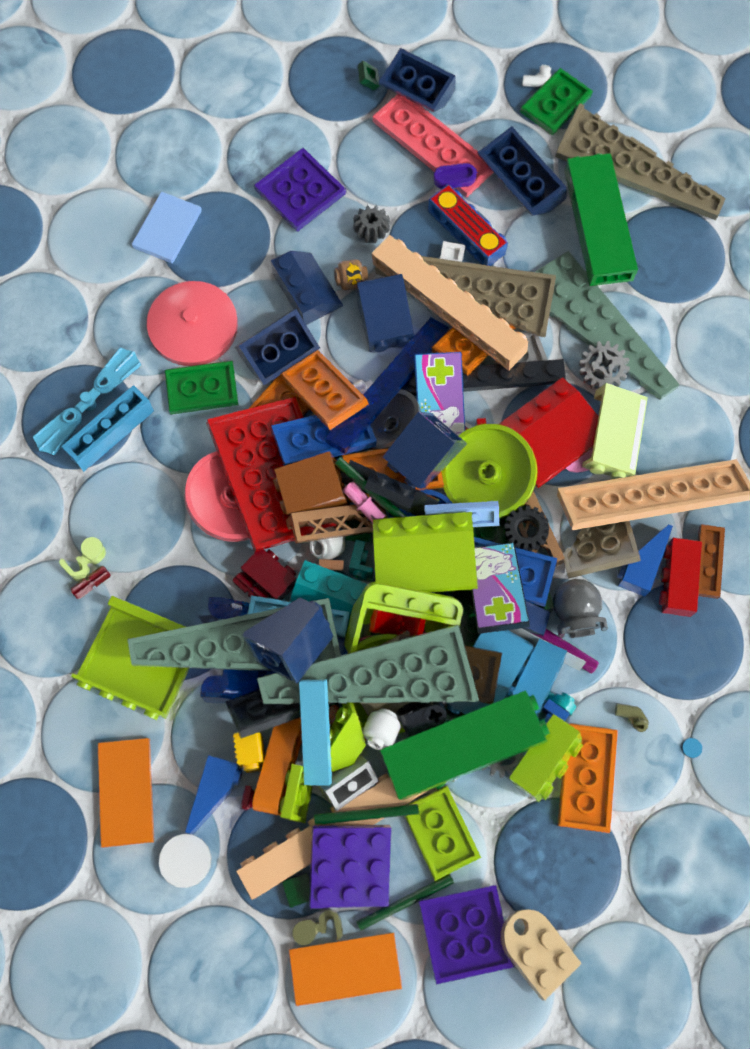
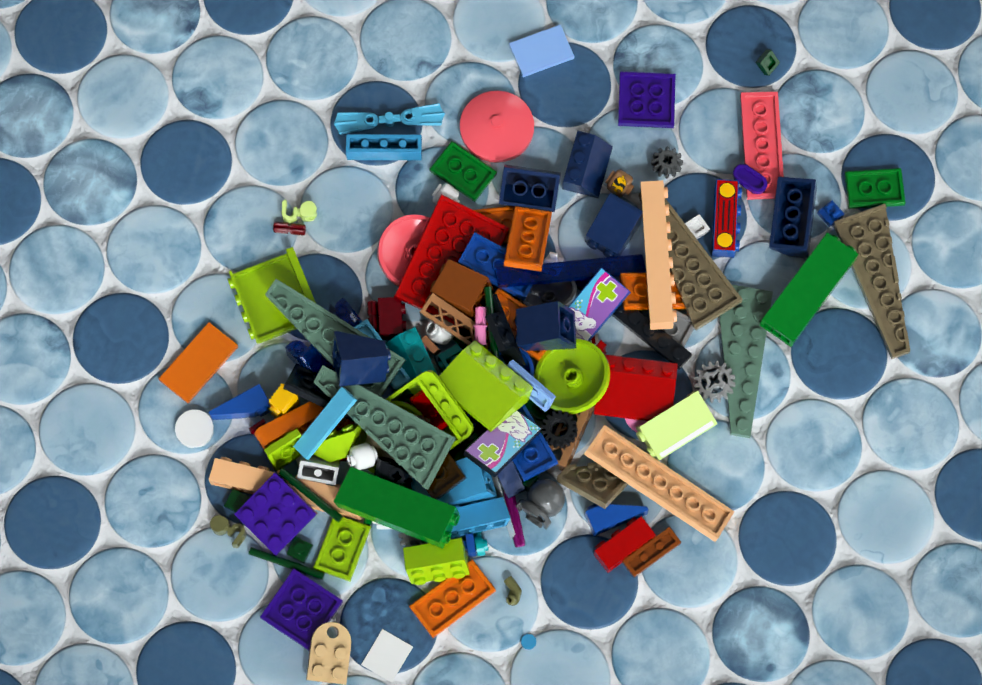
camera: 45 degrees right, 0 degrees up
(200, 418) = (446, 190): none -> white head
(345, 969) = (222, 564): orange tile -> none
(404, 876) = (299, 549): none -> dark green plate
(419, 80) = (791, 96): dark blue slope -> none
(539, 79) = (876, 163): white arm -> none
(545, 149) = (830, 213): none -> blue tile
(585, 893) = (387, 655): none -> white sticker

